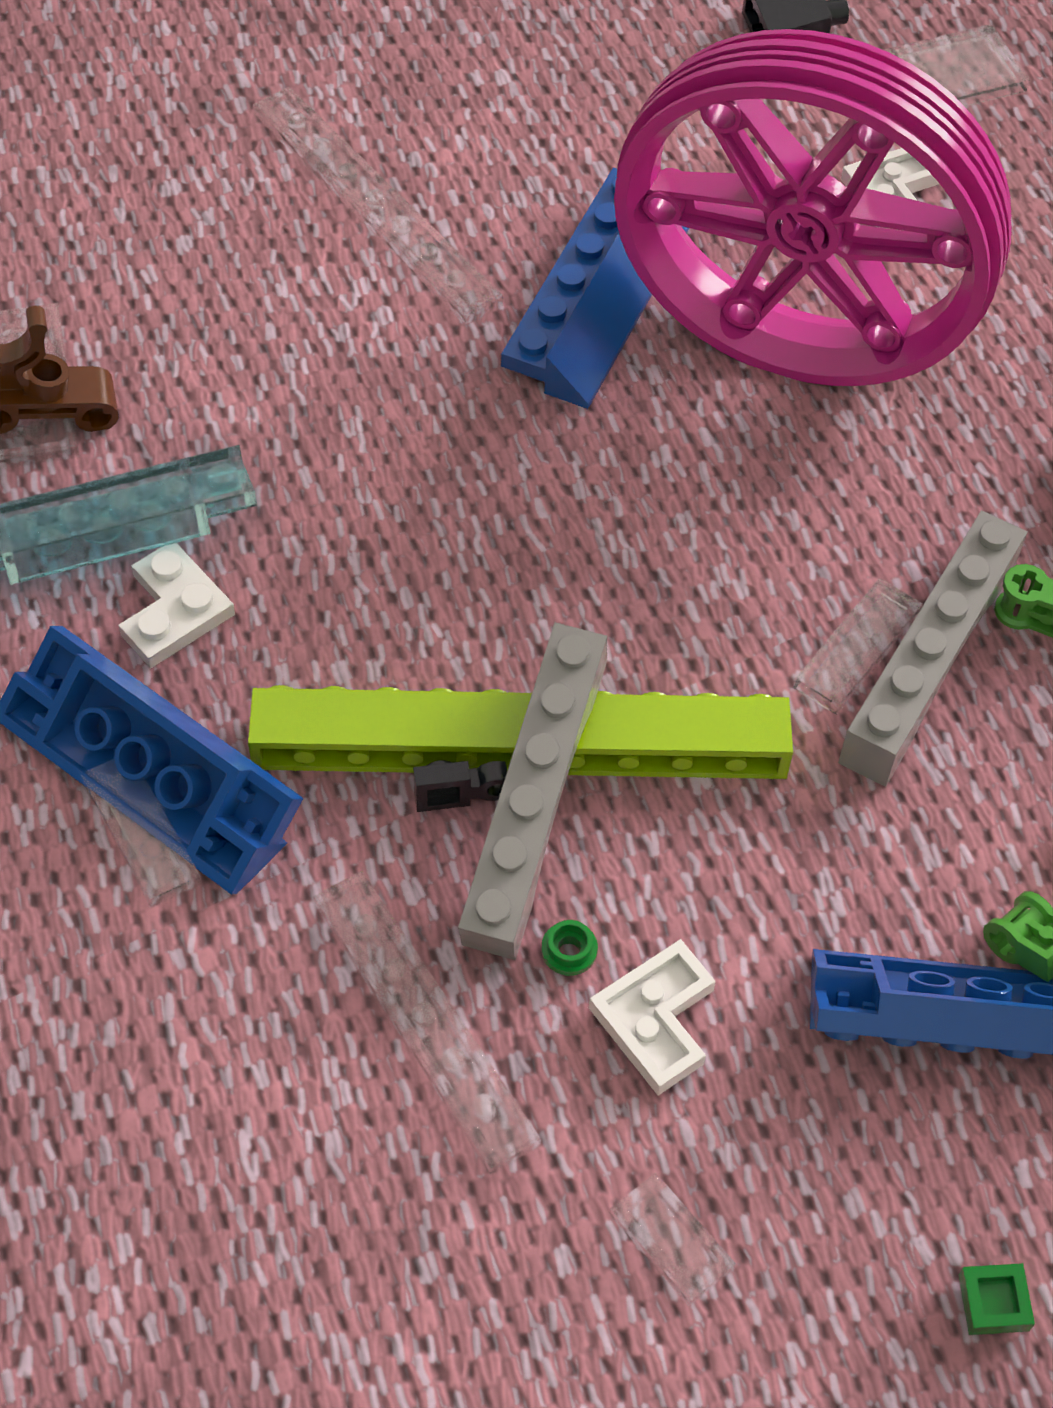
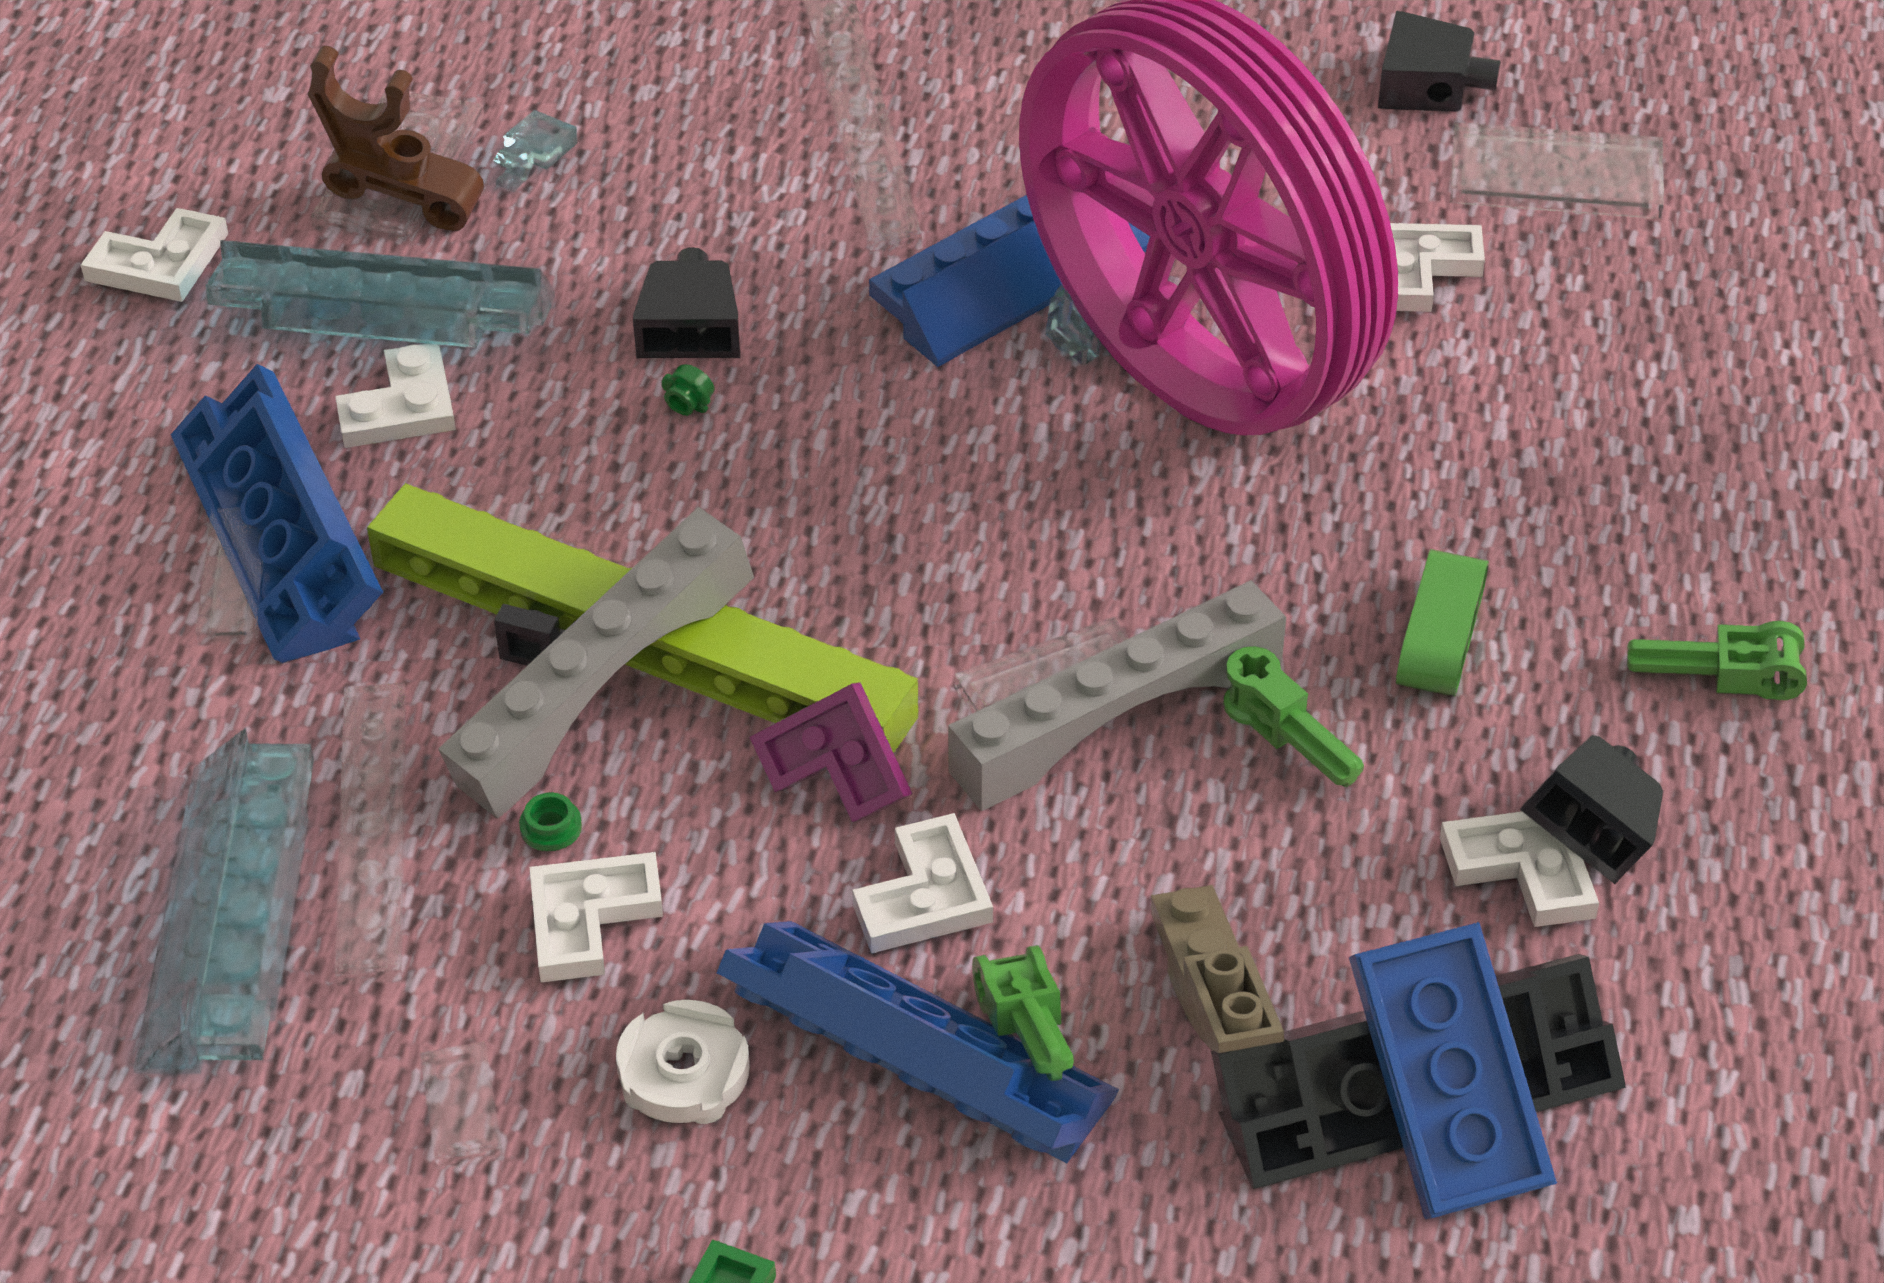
camera: 30 degrees right, 10 degrees down
(128, 323) = (533, 141): none -> clear light blue plate
(357, 1151) = (228, 908): none -> clear light blue slope
(368, 431) = (687, 309): none -> black torso
(413, 506) = (687, 390): none -> green plate
(674, 337) = (1069, 330): none -> clear light blue plate
(763, 775) = (836, 736): none -> magenta plate
(807, 1144) = (689, 1093): none -> white plate
(914, 874) = (937, 895): none -> white plate

